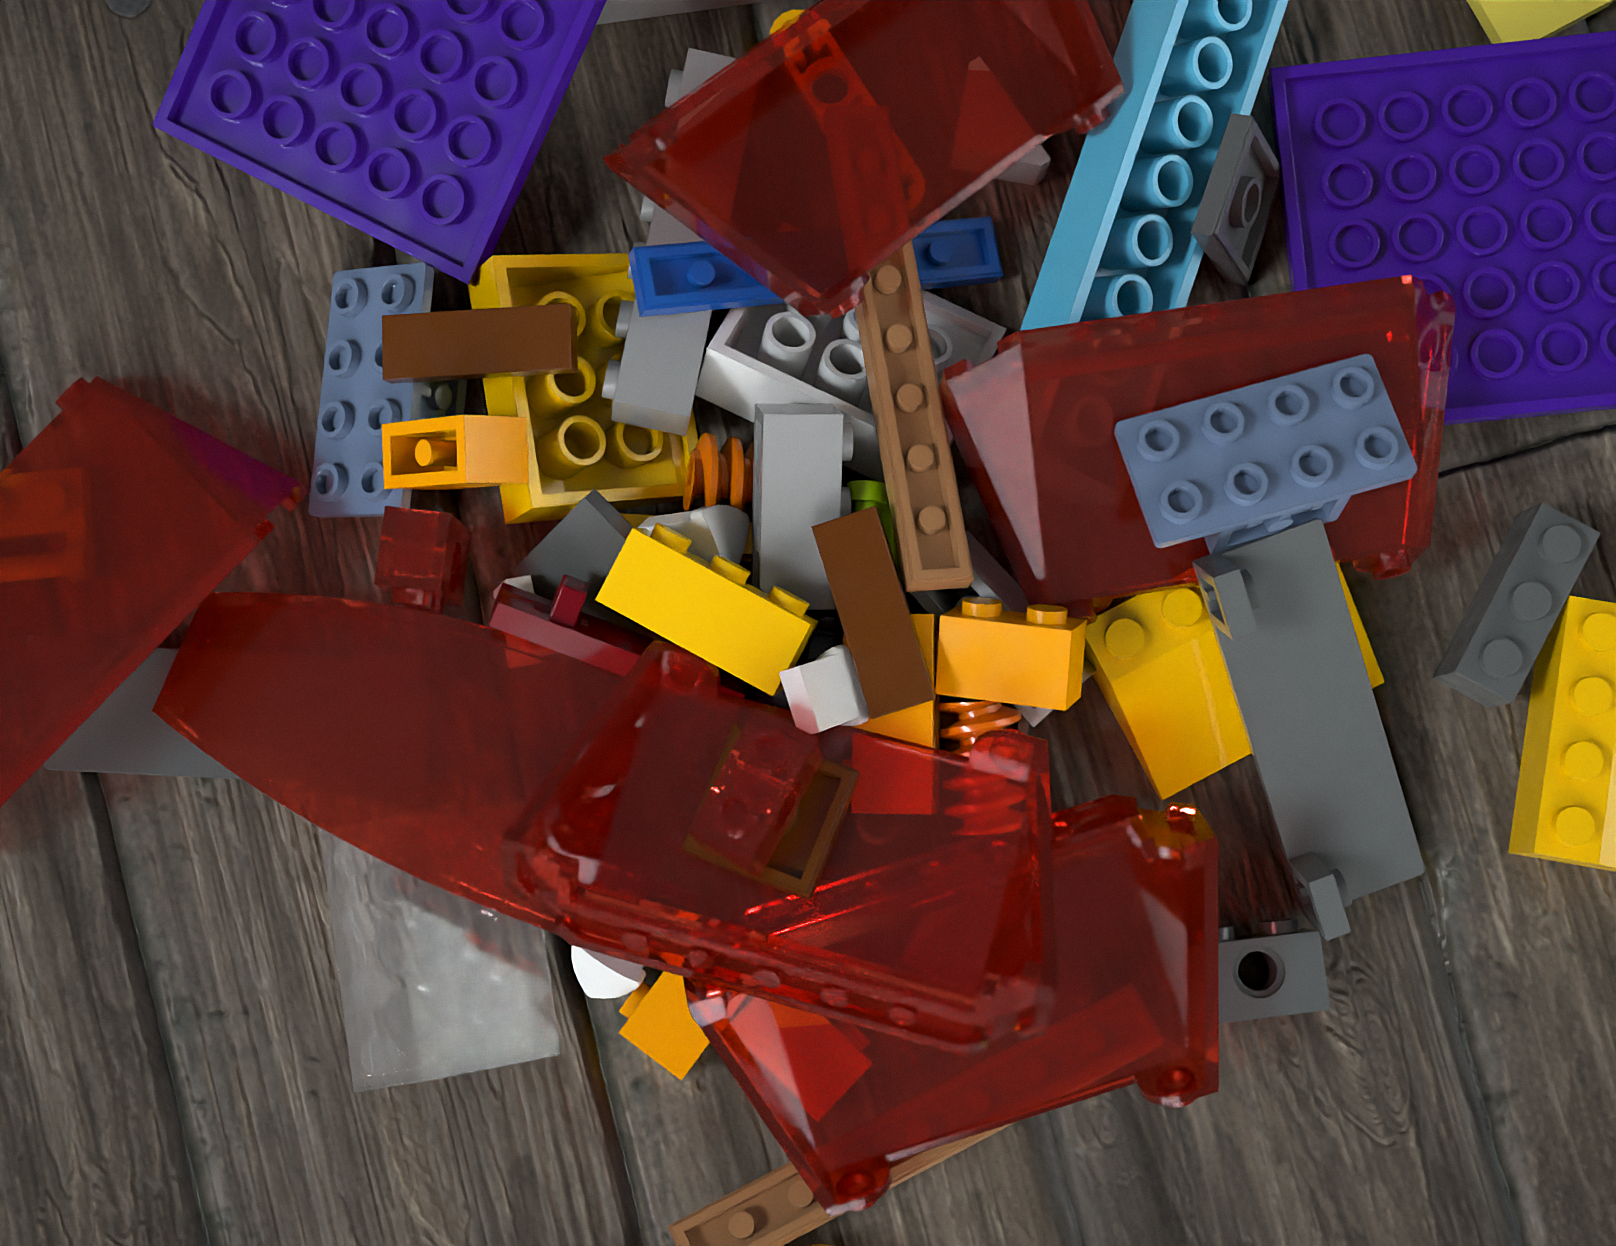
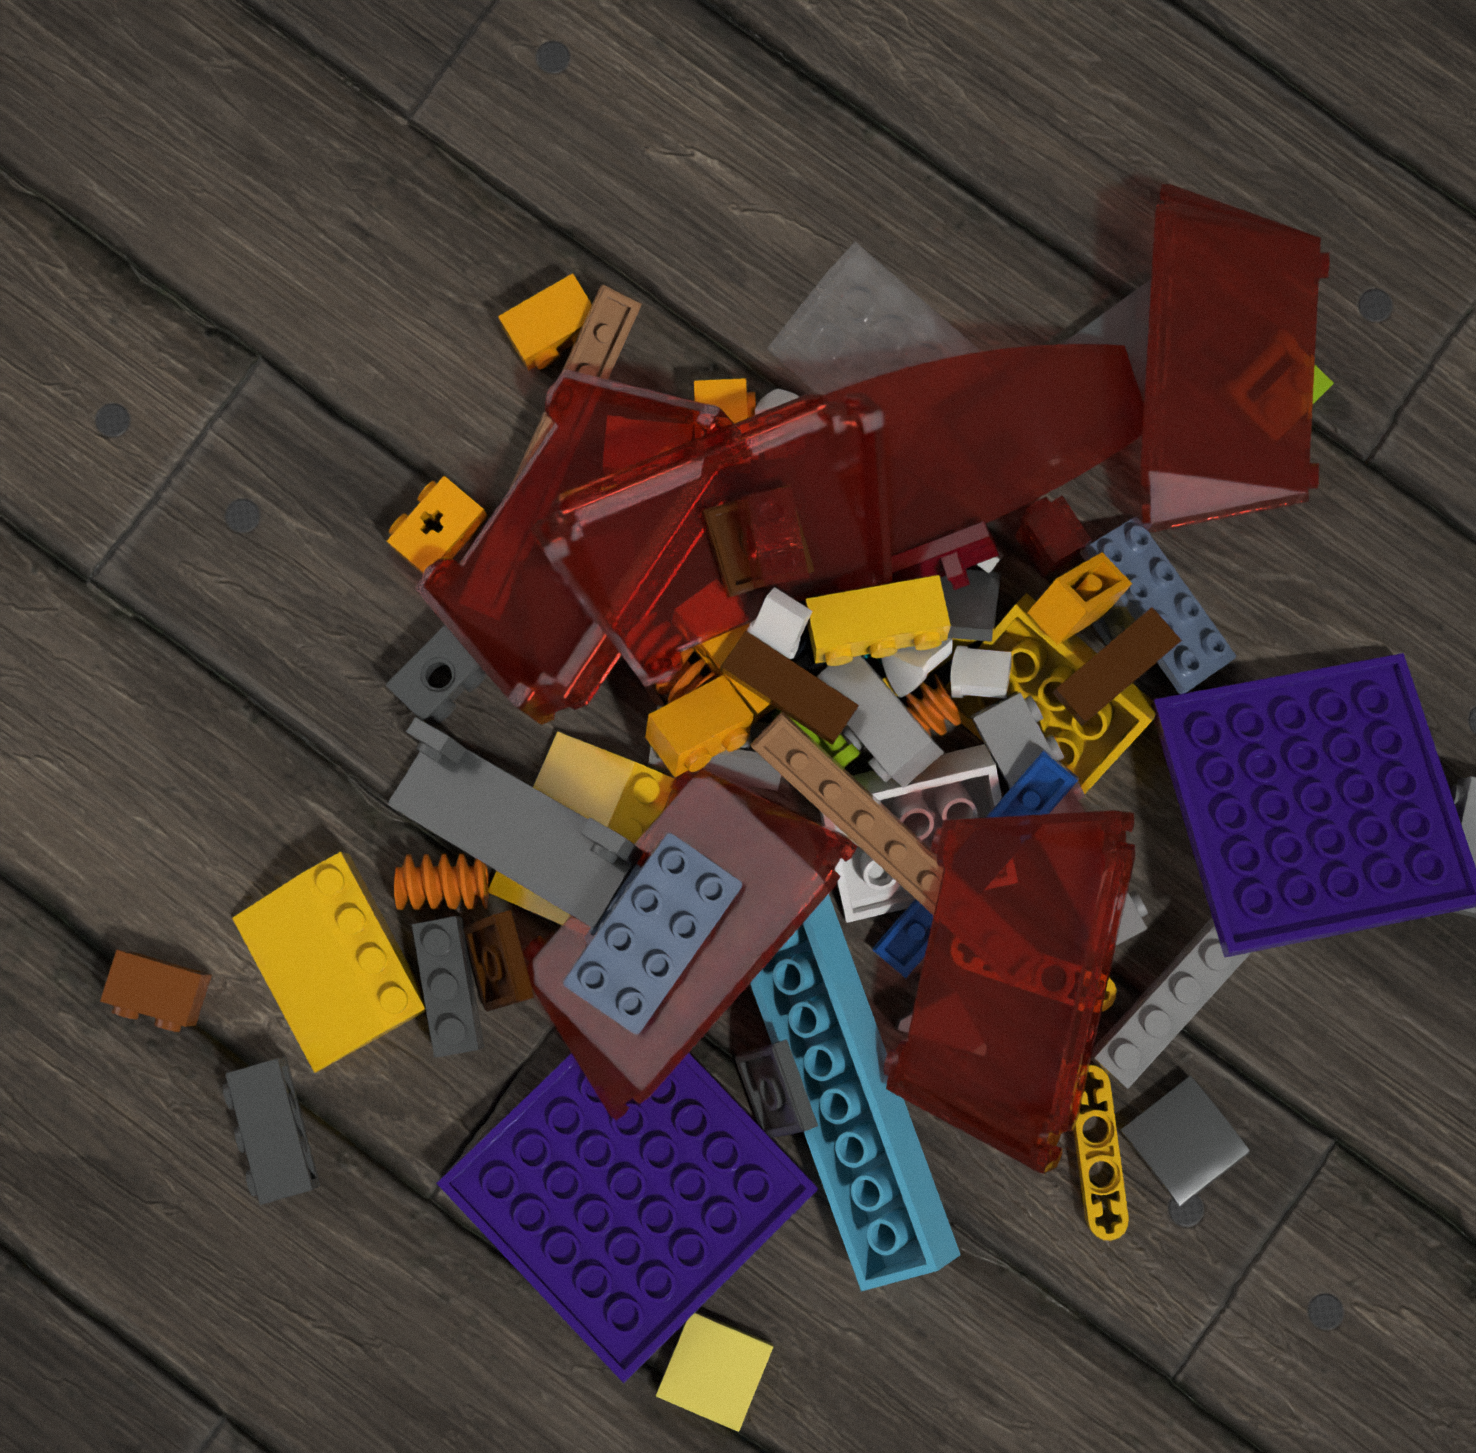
camera: 140 degrees right, 0 degrees up
(636, 466) = (980, 673): none -> white tile
(1087, 1139) = (443, 504): none -> light orange brick
(1438, 731) = (441, 883): none -> orange piece
(1441, 584) = (498, 961): none -> reddish brown tile

